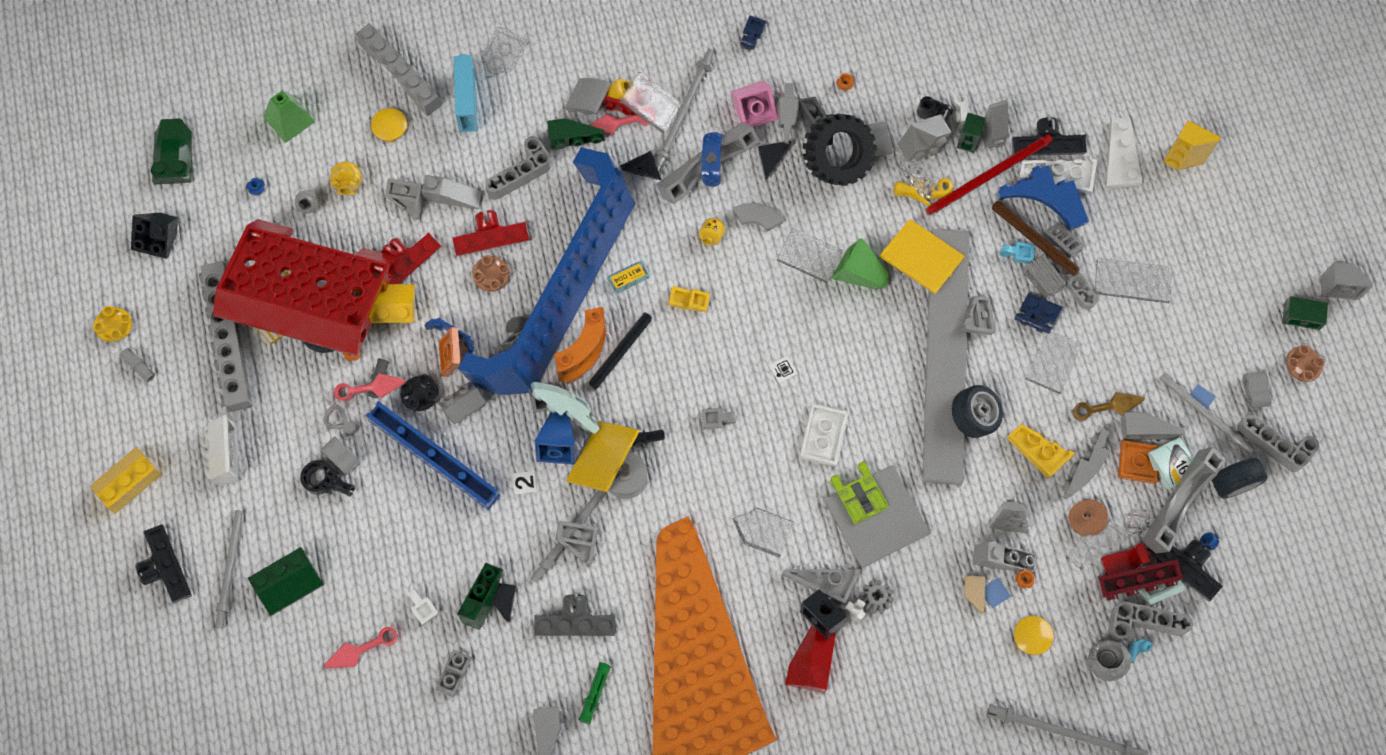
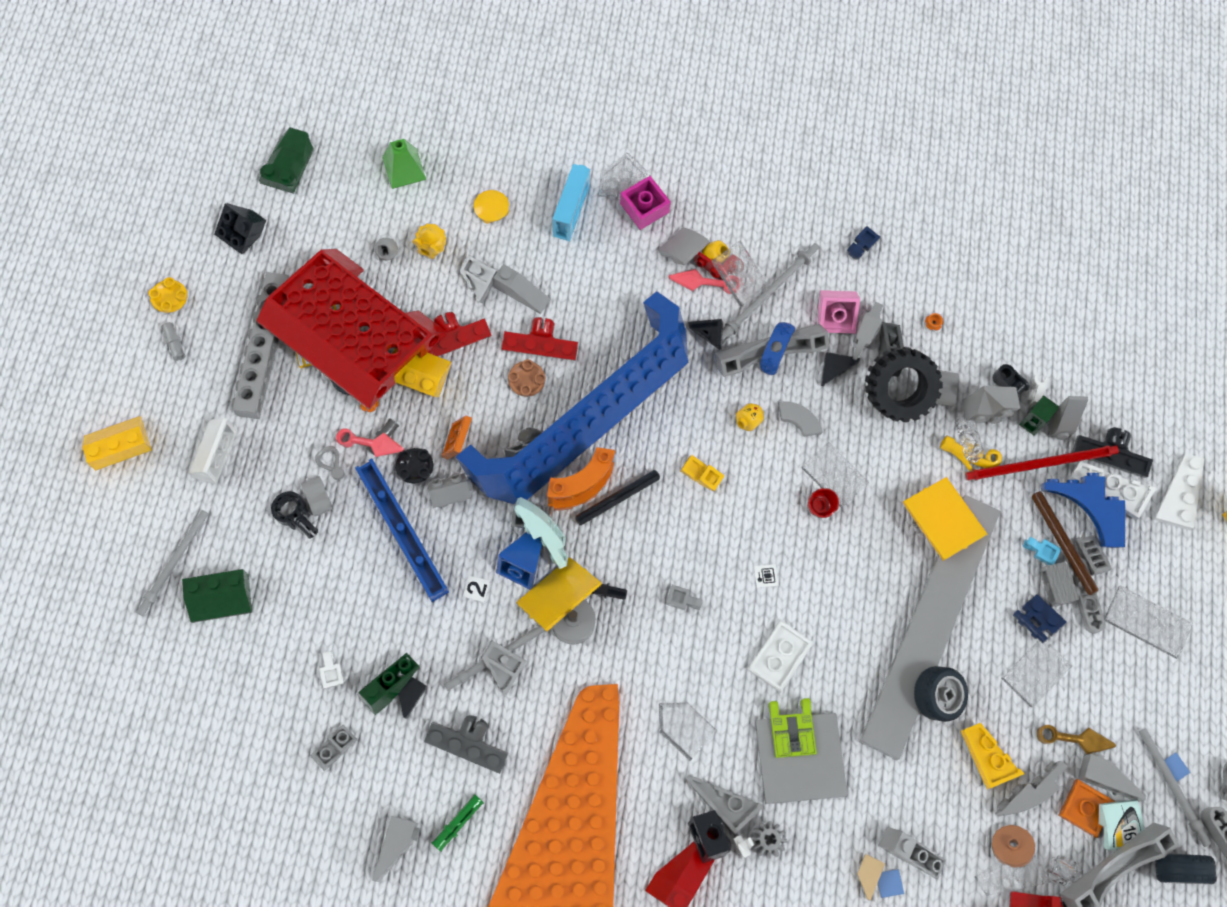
camera: 20 degrees right, 0 degrees up
(163, 565) = (114, 536): black plate -> none
(255, 190) = (348, 222): blue plate -> none
(349, 654) = (245, 688): coral piece -> none
(409, 79) = (516, 147): light grey arch -> none
(440, 324) = (459, 408): blue piece -> none
(516, 170) = (590, 290): light grey beam -> none
(535, 68) = (645, 202): none -> dark pink brick
(569, 133) = (655, 275): dark green slope -> none
(628, 277) = (653, 430): tile -> none
(809, 284) = (823, 503): none -> red hair
(861, 267) = (880, 506): bright green slope -> none
(979, 316) = (978, 599): light grey wing -> none
(1010, 517) = (933, 815): light grey wing -> none
(1025, 574) = (927, 888): orange plate -> none

